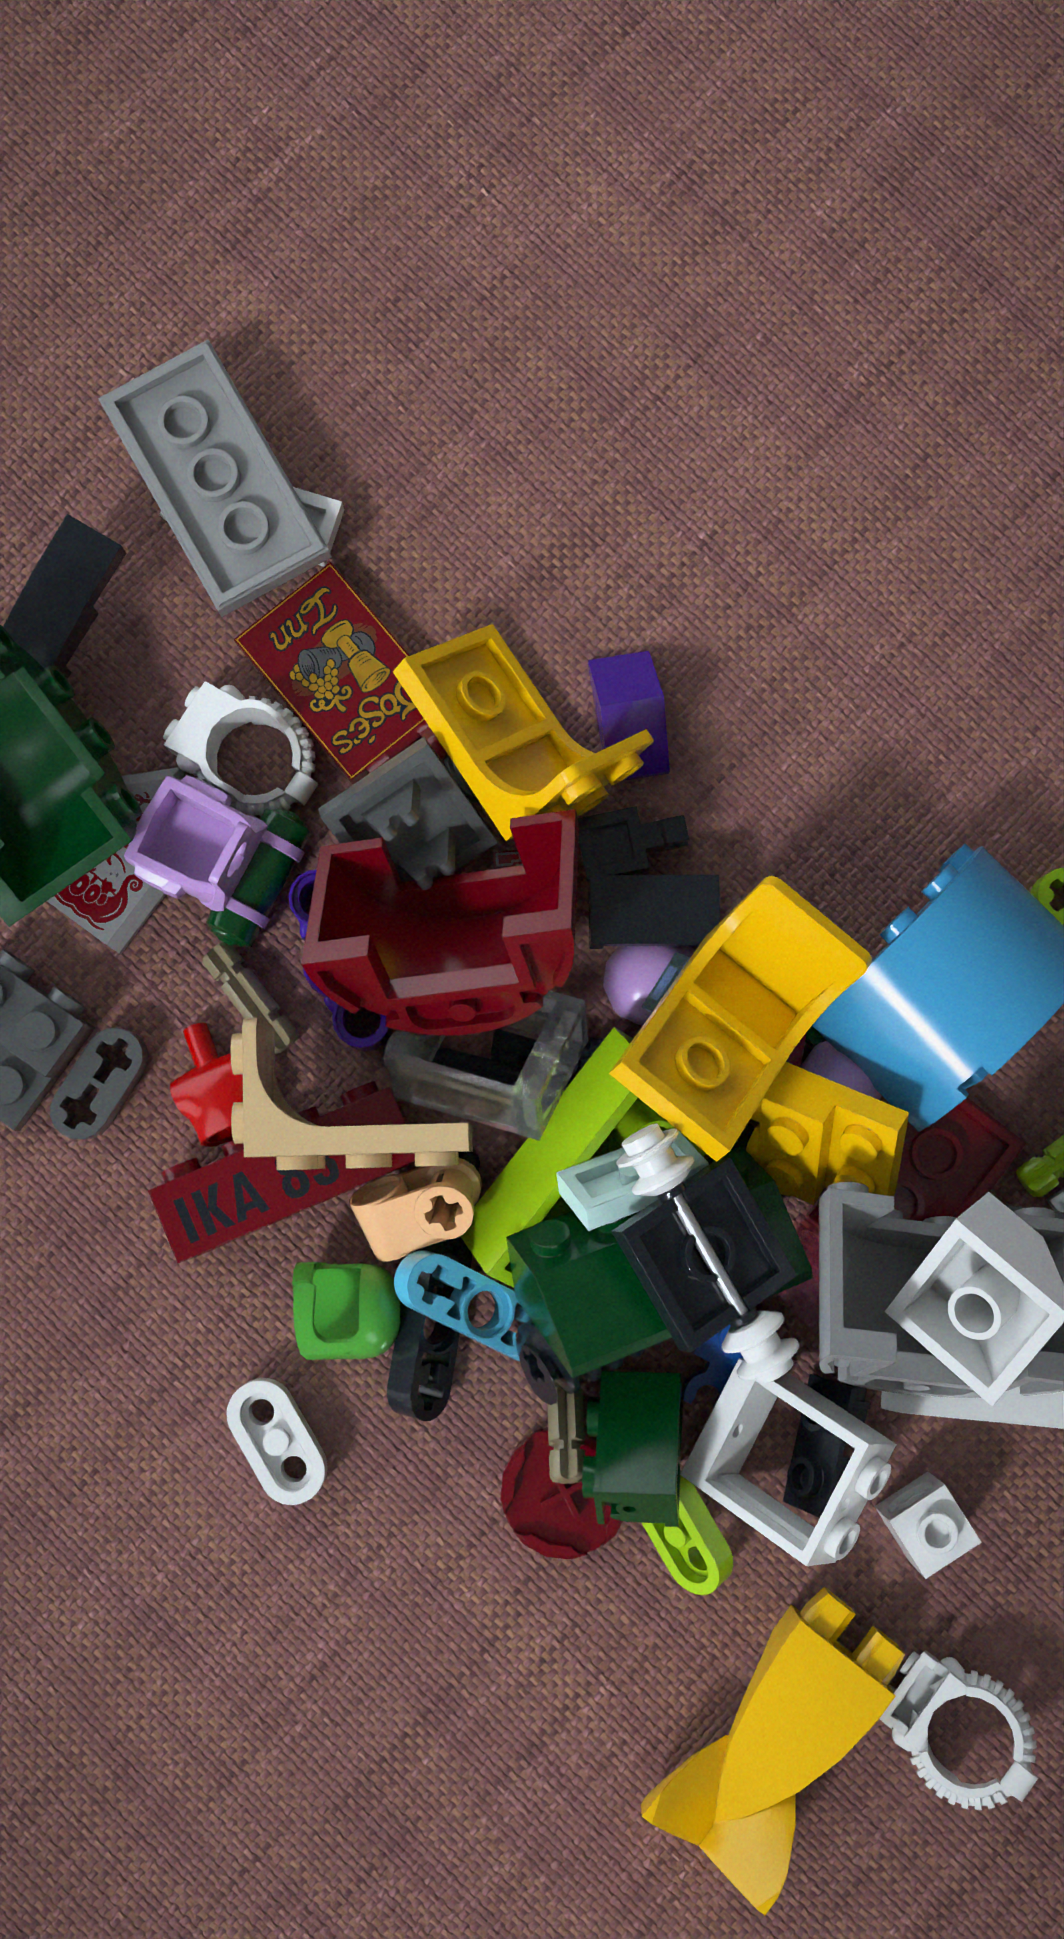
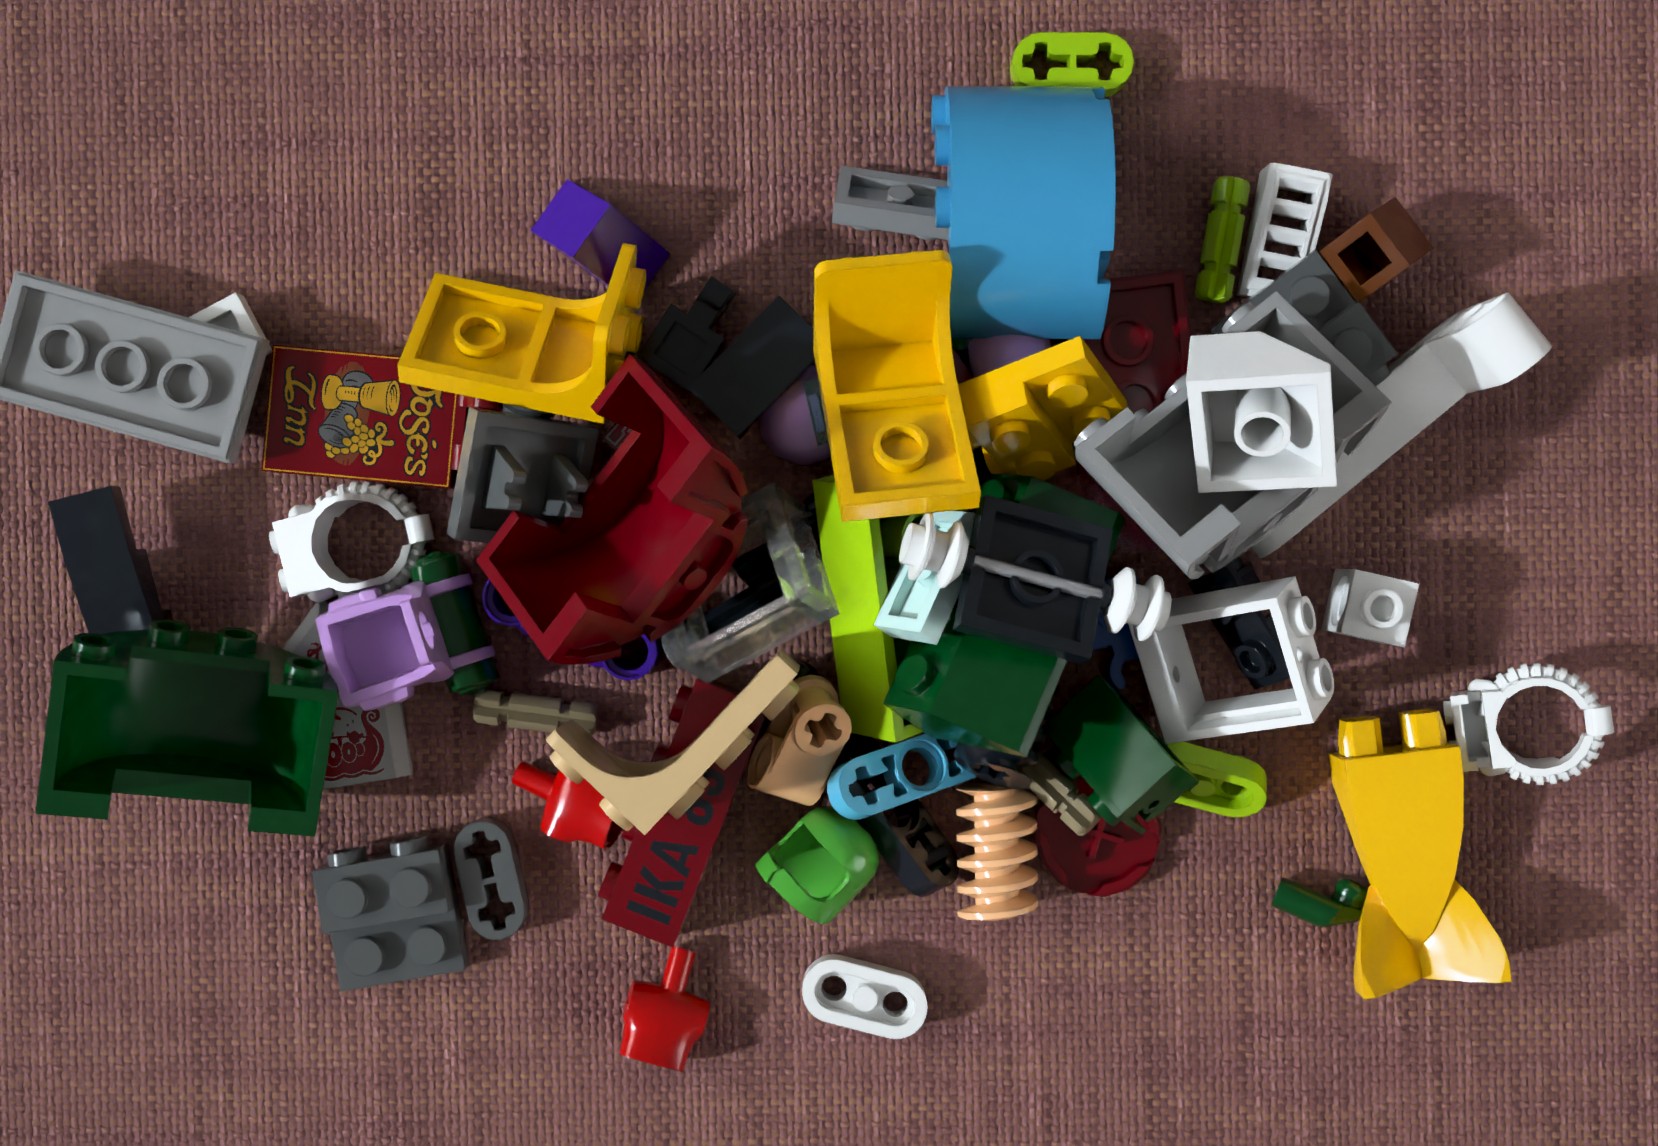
camera: 45 degrees left, 5 degrees up
(118, 1309) = (663, 1017): none -> red piece
(479, 1431) = (998, 852): none -> light nougat piece
(673, 1717) = (1321, 909): none -> dark green arm
(859, 887) = (887, 202): none -> light grey plate

